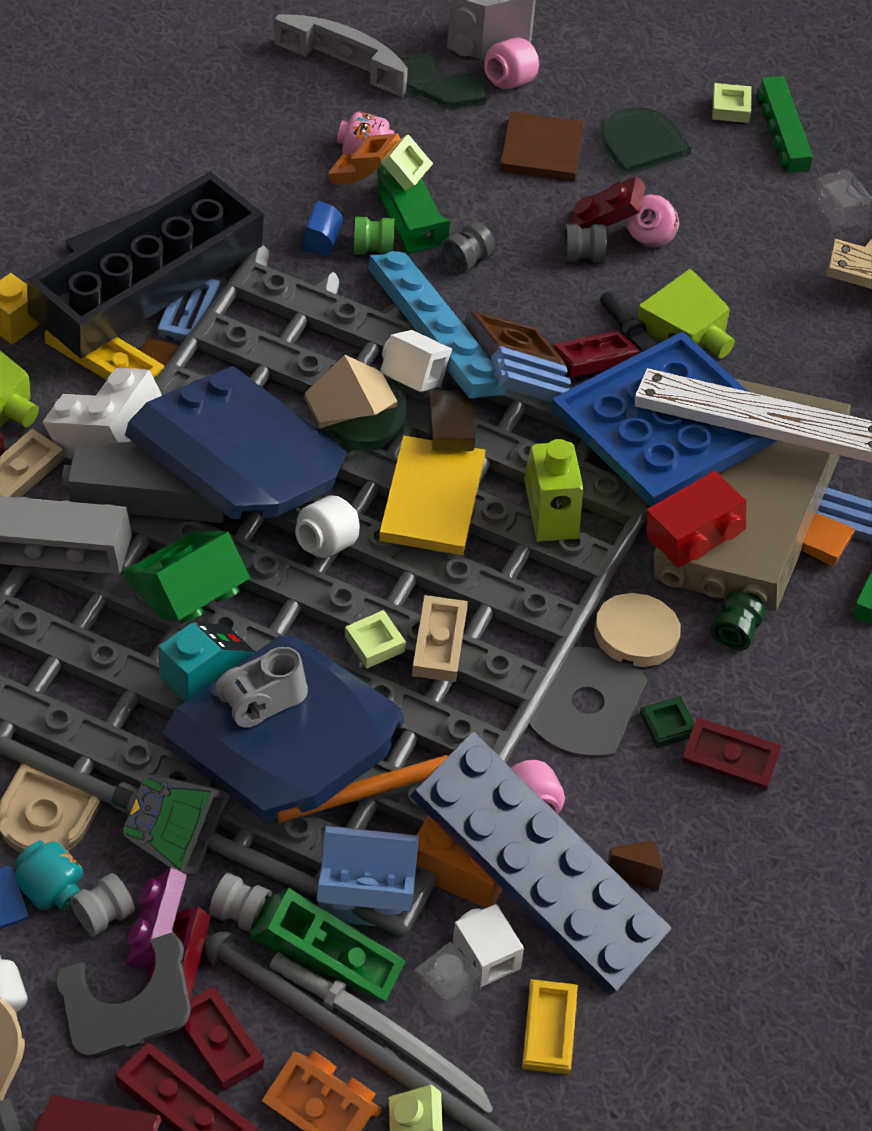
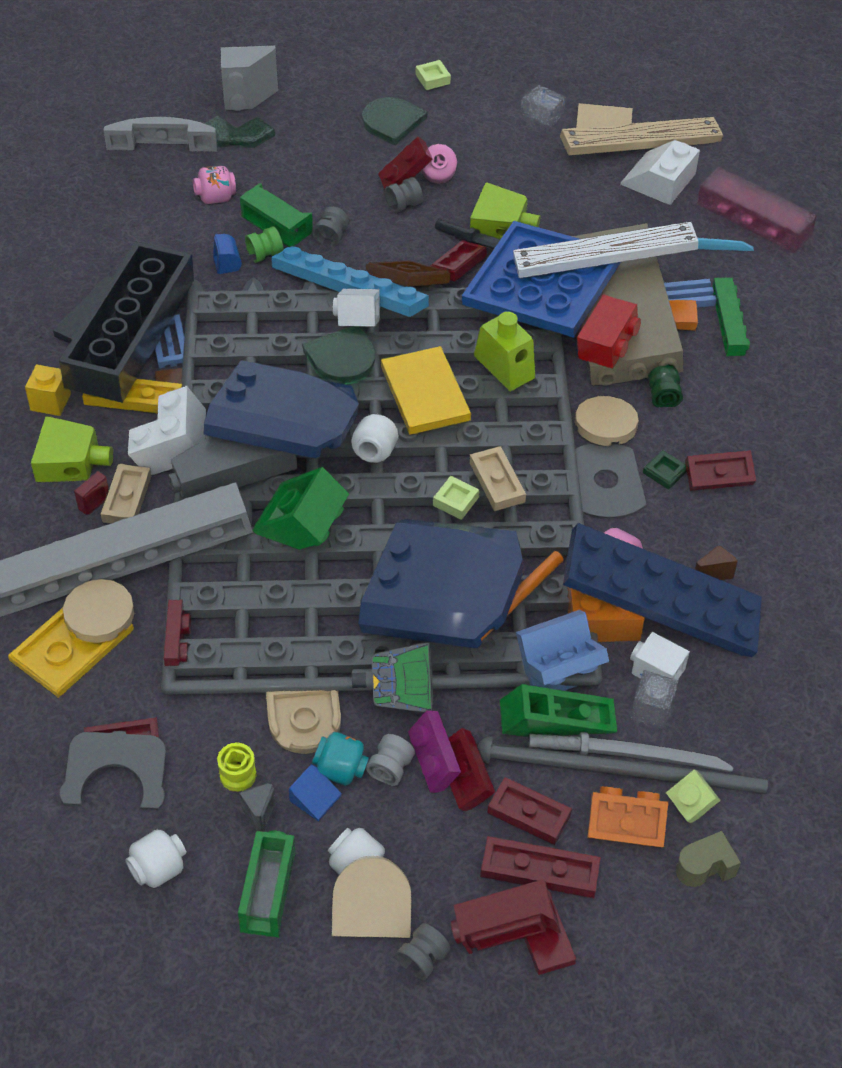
camera: 25 degrees left, 0 degrees up
(156, 1011) = (449, 842): dark grey piece -> none
(200, 657) = (350, 564): teal slope -> none
(238, 902) = (482, 713): light grey wheel -> none
(265, 686) = (420, 556): light grey piece -> none
(349, 392) = (329, 346): tan slope -> none
(364, 161) = (232, 192): orange slope -> none
(406, 162) = (262, 185): yellowish green plate -> none
(451, 420) = (406, 336): dark brown tile -> none
(511, 63) = (277, 102): bright pink head -> none
(529, 374) = (438, 286): medium blue tile -> none
(542, 146) = (331, 147): reddish brown tile -> none
(550, 1027) = (731, 696): yellow tile -> none
(785, 124) = (475, 75): green piece -> none

